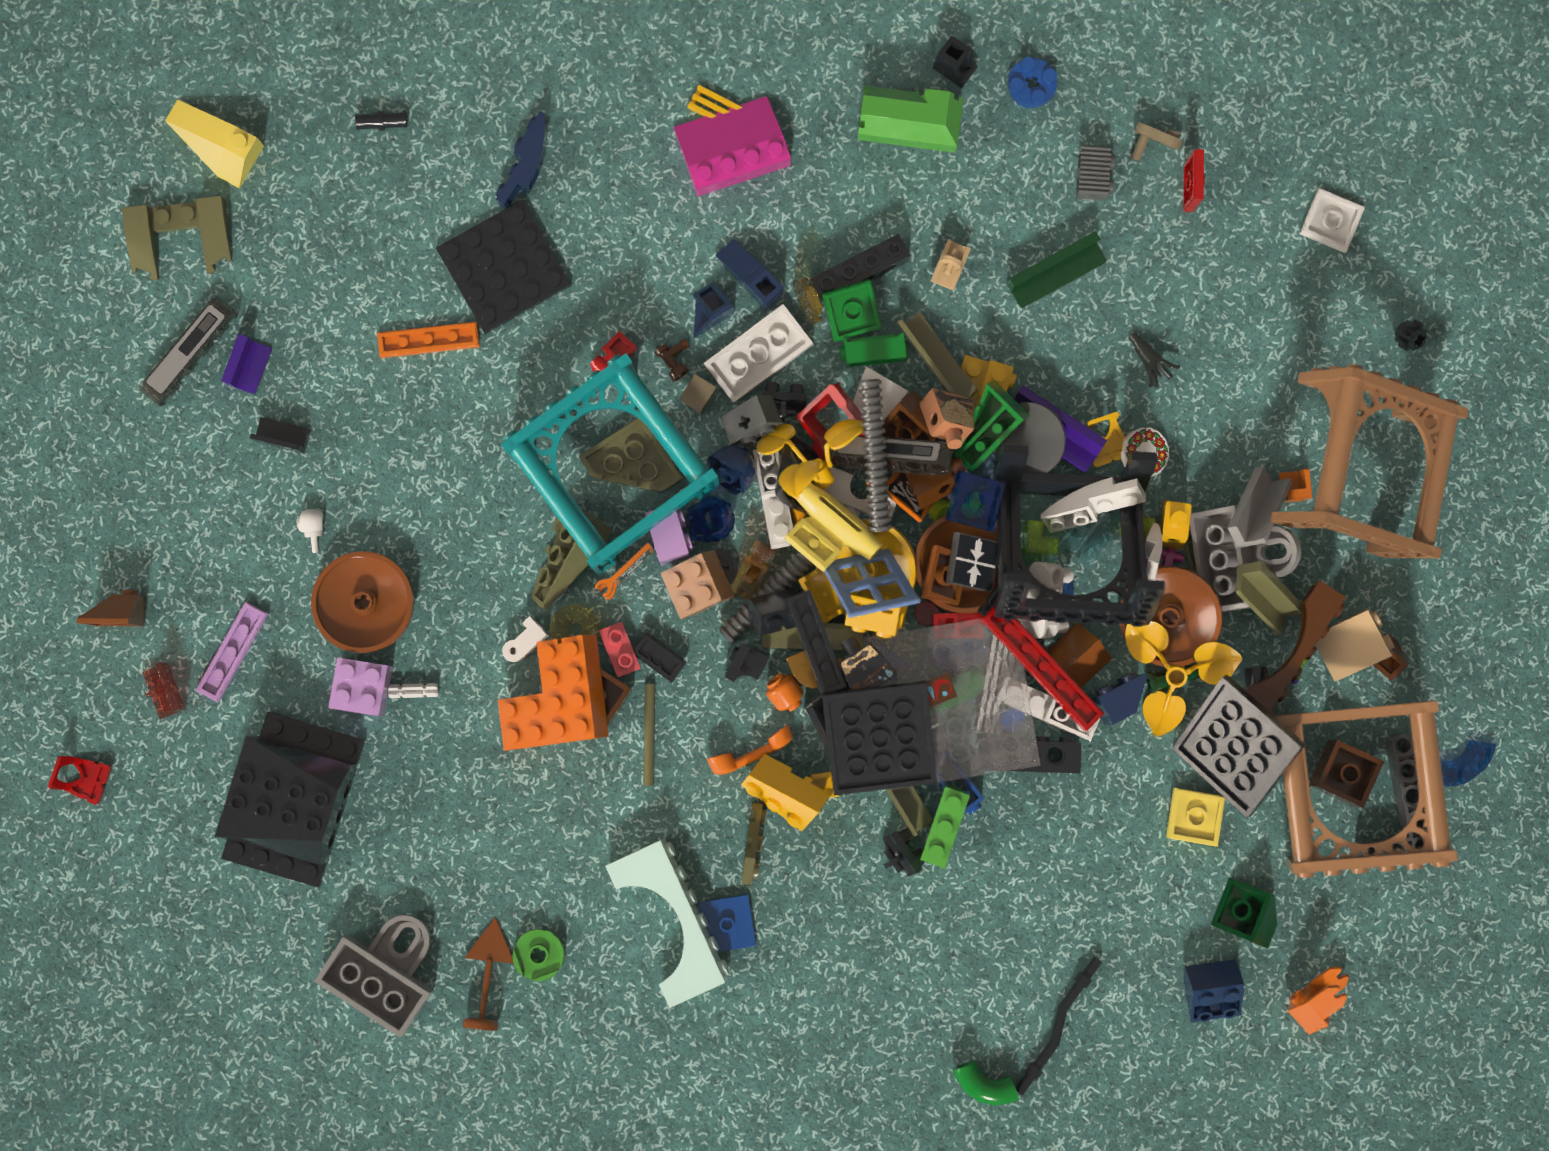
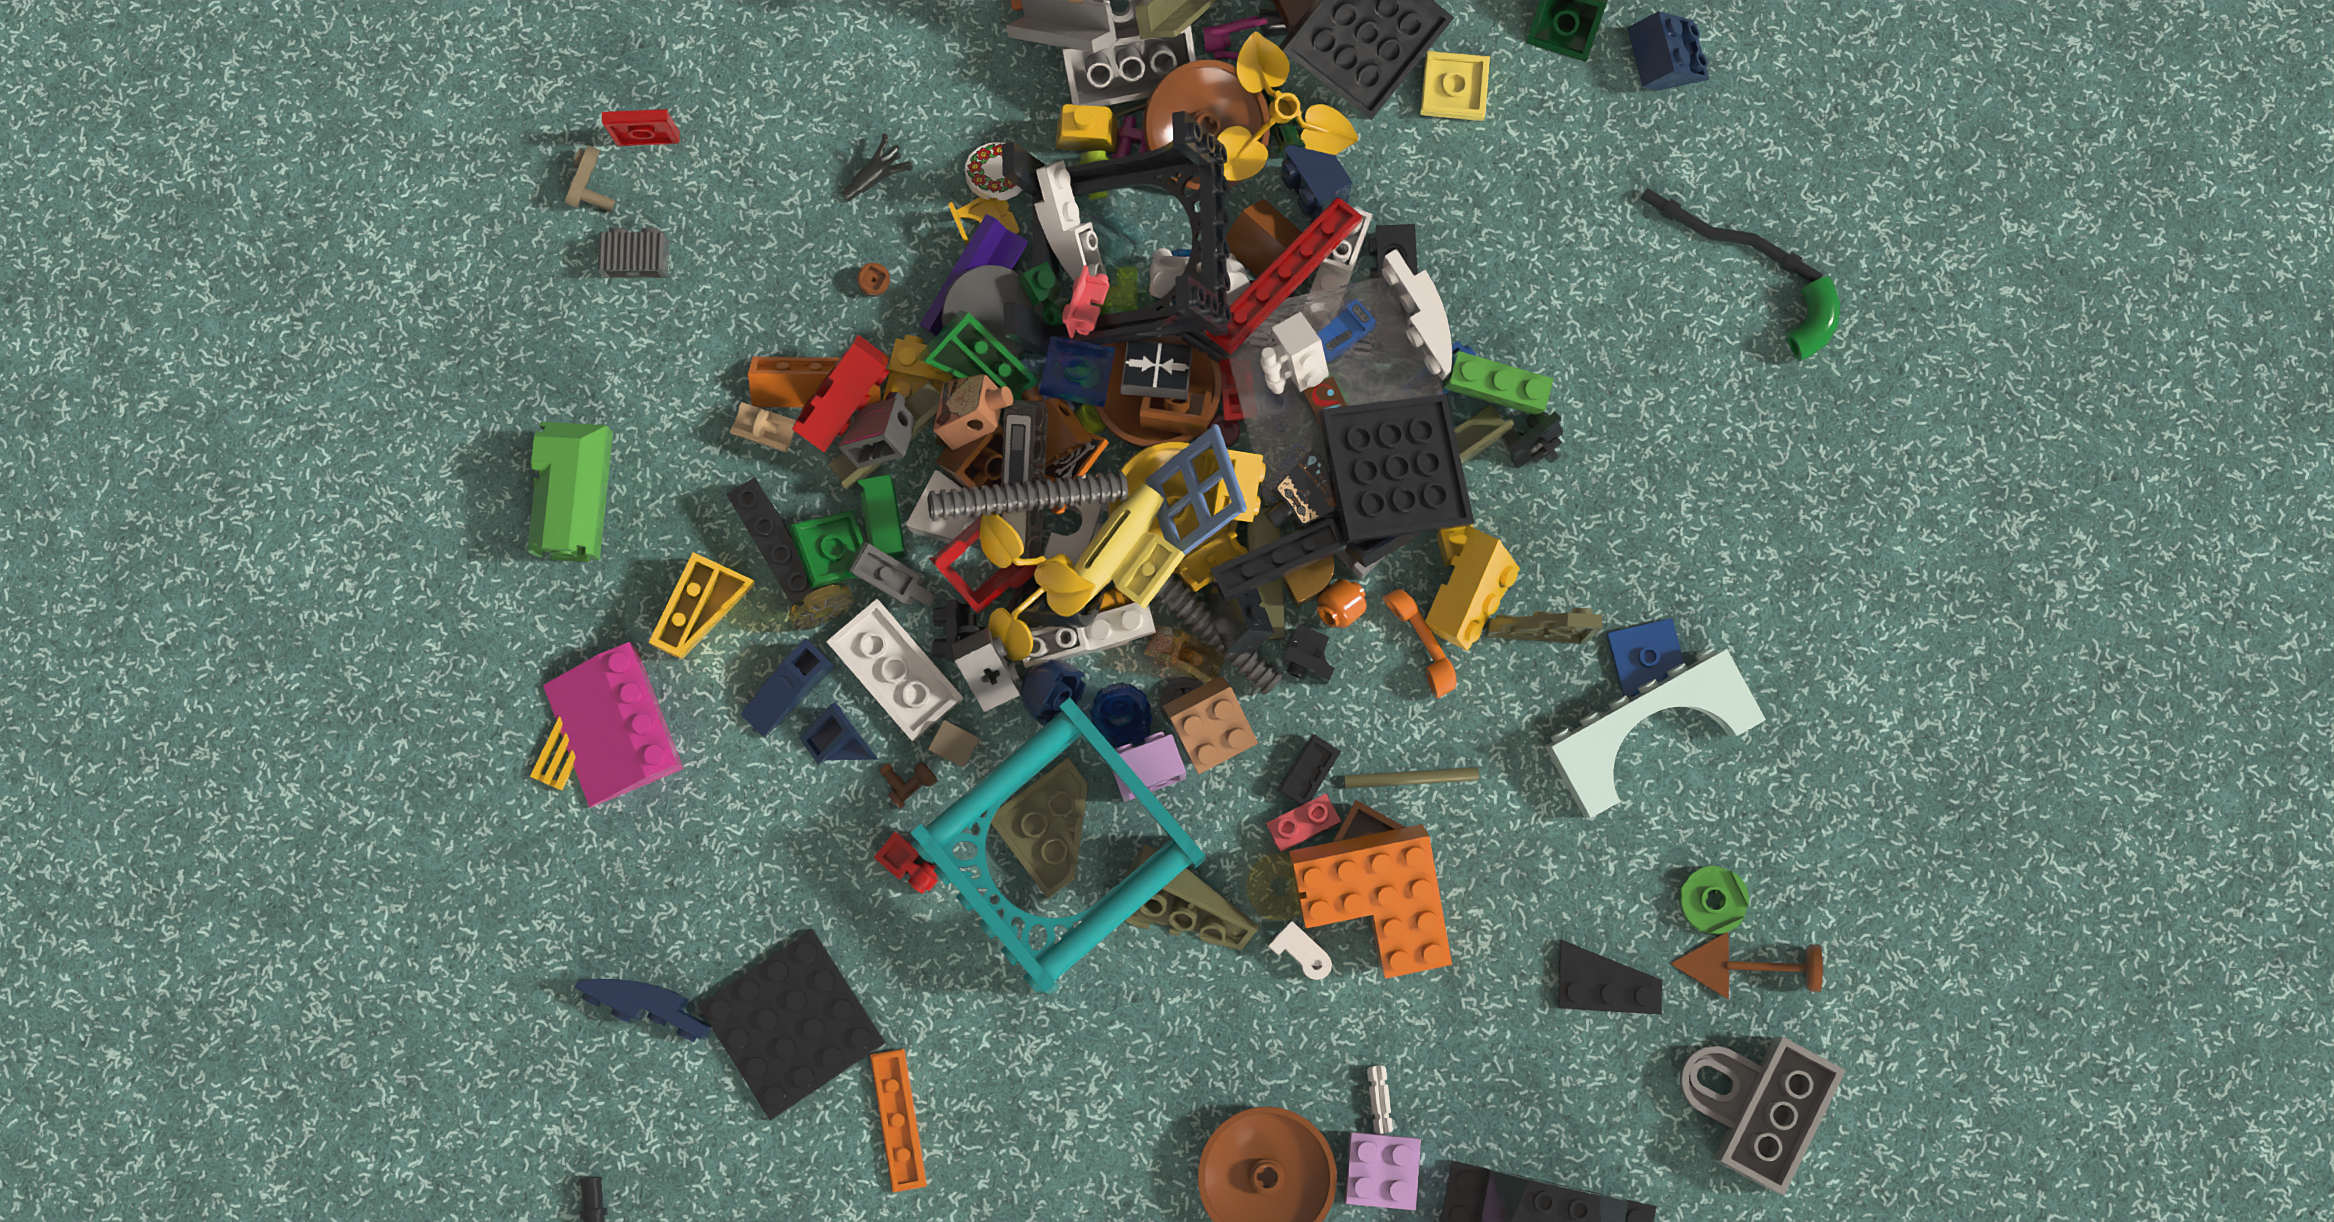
camera: 85 degrees left, 5 degrees down
(482, 865) = (1603, 984): none -> black wing
(623, 572) = (1216, 836): orange flag -> none
(817, 209) = (697, 604): none -> yellow wedge
(827, 352) = (889, 576): none -> dark grey hinge
(936, 349) = (879, 432): none -> dark grey torso
(955, 62) = (490, 438): black brick -> none
(970, 322) = (842, 393): none -> red wedge
(972, 666) = (1296, 356): none -> white brick
(985, 305) = (791, 380): none -> orange panel
(991, 706) = (1346, 330): none -> blue leg
(993, 775) = (1429, 324): none -> white slope
(1019, 505) = (1079, 313): none -> coral hinge
(1029, 69) = (521, 357): blue plate -> none
(1044, 478) = (1042, 286): none -> dark green plate
(1056, 270) = (765, 294): dark green panel -> none
(1063, 353) = (873, 279): none -> dark orange tile
(1153, 550) = (1124, 145): white slope -> none
(1246, 632) = (1218, 36): none -> dark pink plant

